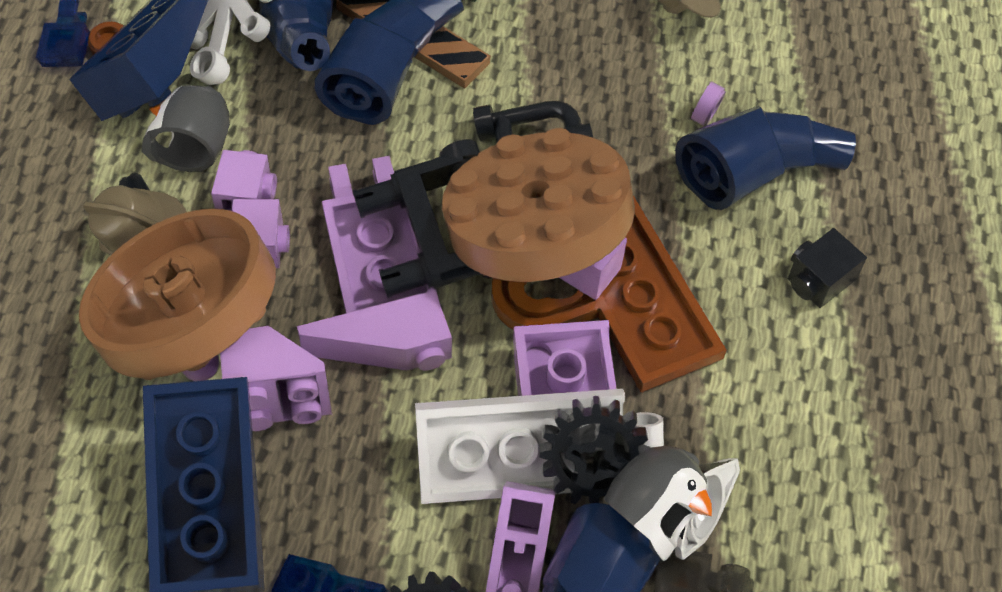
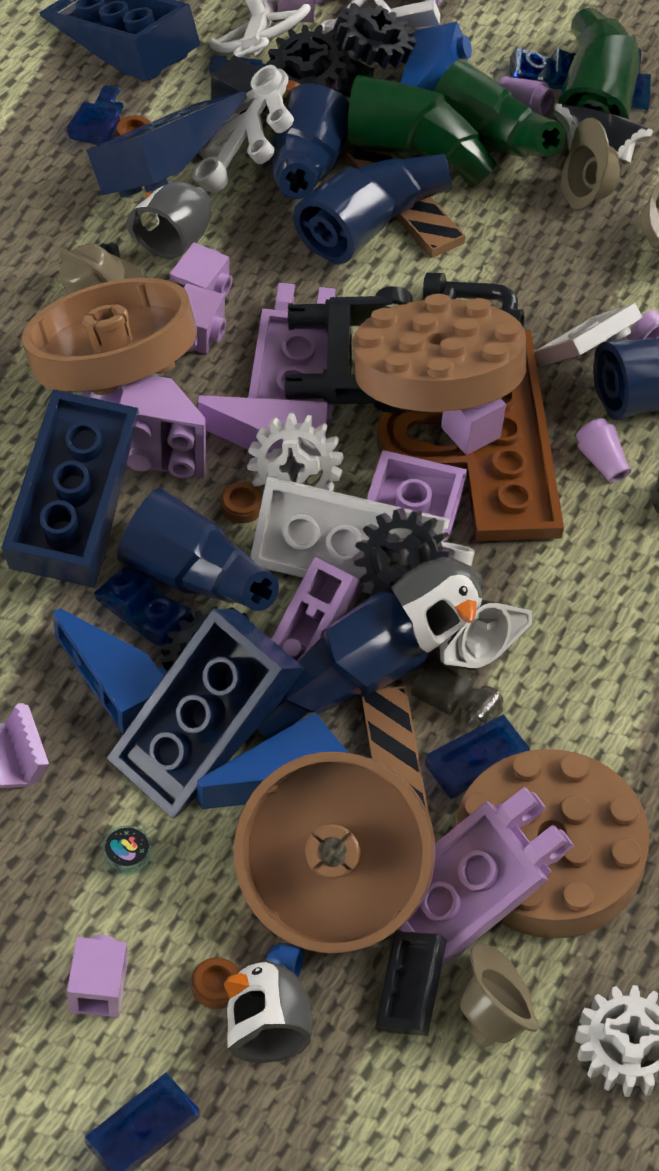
camera: 20 degrees right, 5 degrees down
(364, 520) = (193, 554): none -> dark blue piece
(384, 430) = (241, 502): none -> dark orange tile
(450, 356) = (295, 440): none -> white gear
(664, 127) = (589, 334): none -> white plate
(724, 247) = (603, 449): none -> lavender cone

